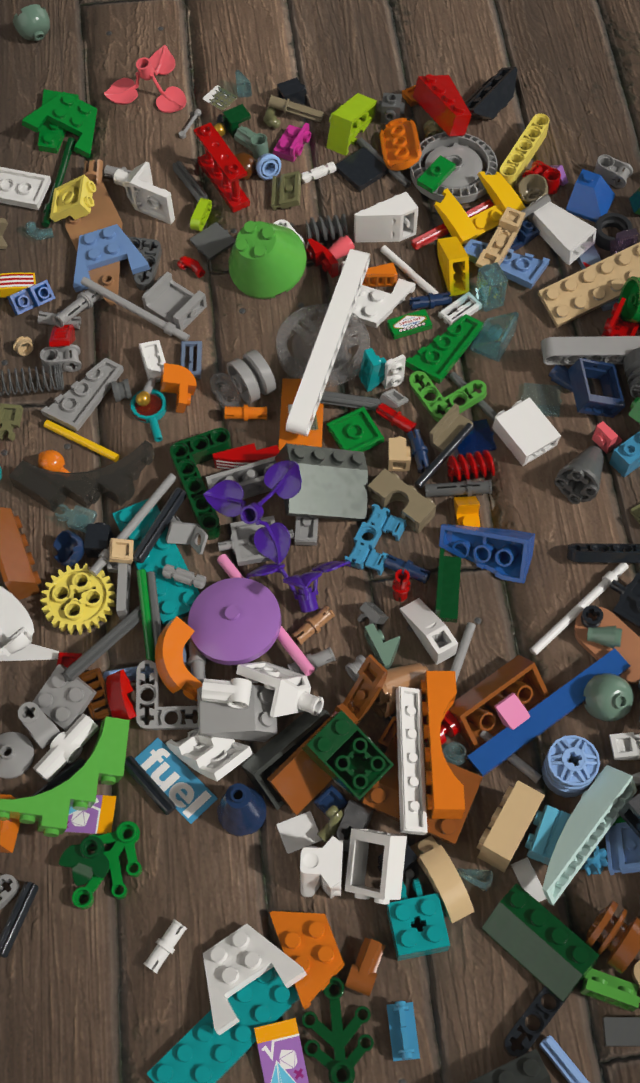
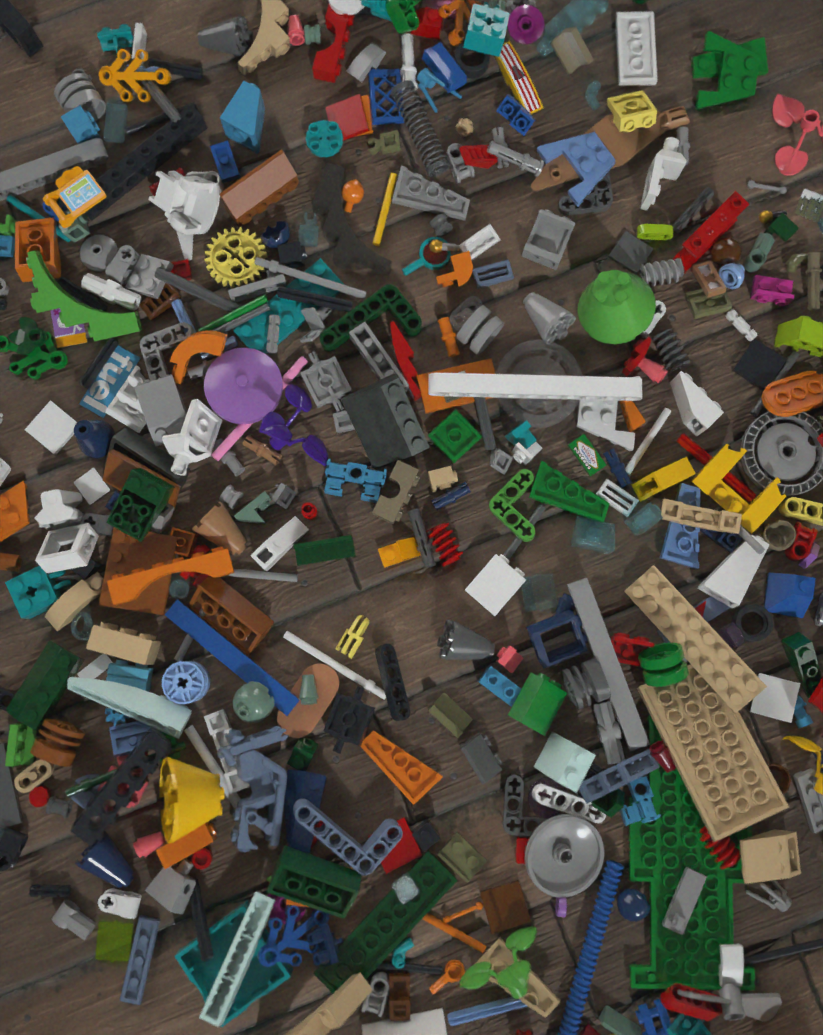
camera: 70 degrees right, 20 degrees up
(59, 179) = (664, 90): dark green bar -> none
(117, 688) = (161, 315): red slope -> none
(121, 550) = (278, 276): tan tile -> none
(169, 328) = (519, 243): light grey bar -> none
(191, 263) = (597, 241): red arm -> none
(211, 860) = (52, 427): none -> white tile
(227, 498) = (365, 381): dark purple plant -> none
(234, 692) = (169, 402): white piece -> none
(245, 210) = (662, 271): none -> light grey piece
(256, 318) = (548, 317): none -> light grey cone
(265, 183) = (708, 279): none -> medium nougat piece
(332, 826) = (102, 509): olive arm -> none
(364, 690) = (195, 500): dark orange slope -> none
(395, 418) = (479, 467): red axle -> none
(411, 761) = (151, 554): white tile -> none
(416, 572) = (332, 513): dark blue pin -> none
(436, 174) = (764, 436): green plate -> none
(442, 457) = (449, 518): black bar -> none
(447, 428) = (478, 518): dark tan panel -> none
(478, 440) = (480, 540): clear blue piece -> none
(497, 550) = (370, 588): blue wedge -> none
(511, 711) = (219, 626): bright pink slope -> none
(552, 579) = (353, 636): none -> light yellow arm
(596, 611) = (330, 678): black bush -> none

